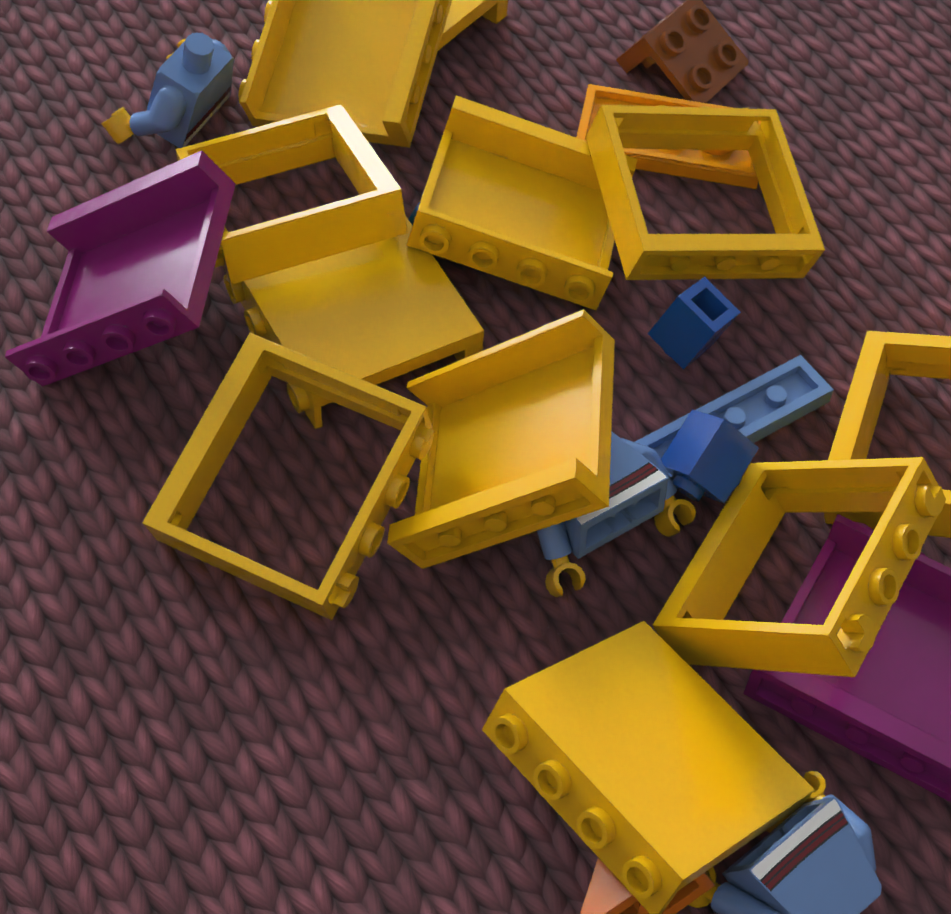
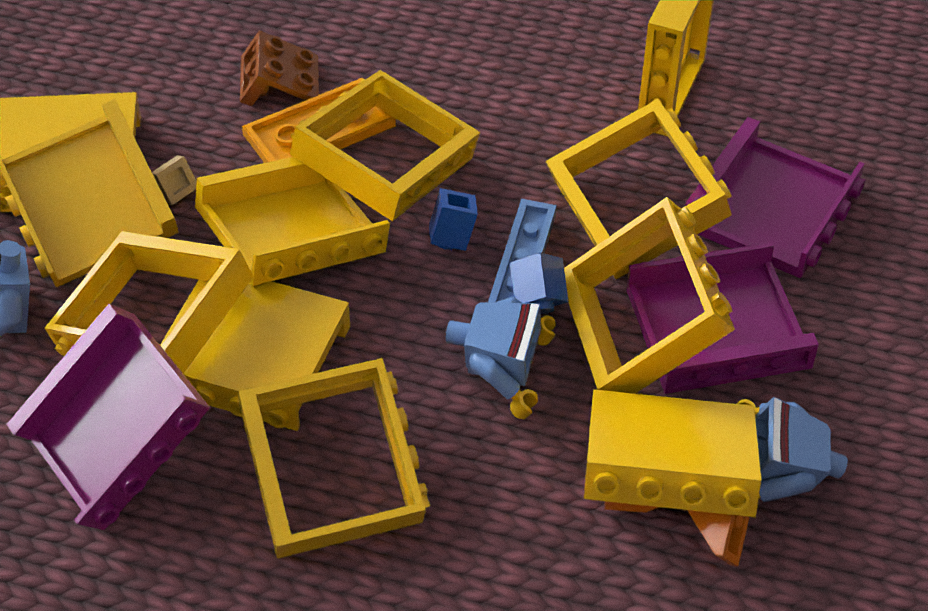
camera: 40 degrees left, 5 degrees down
(460, 82) = (175, 179): none -> tan tile
(513, 441) = (445, 344): yellow panel -> none

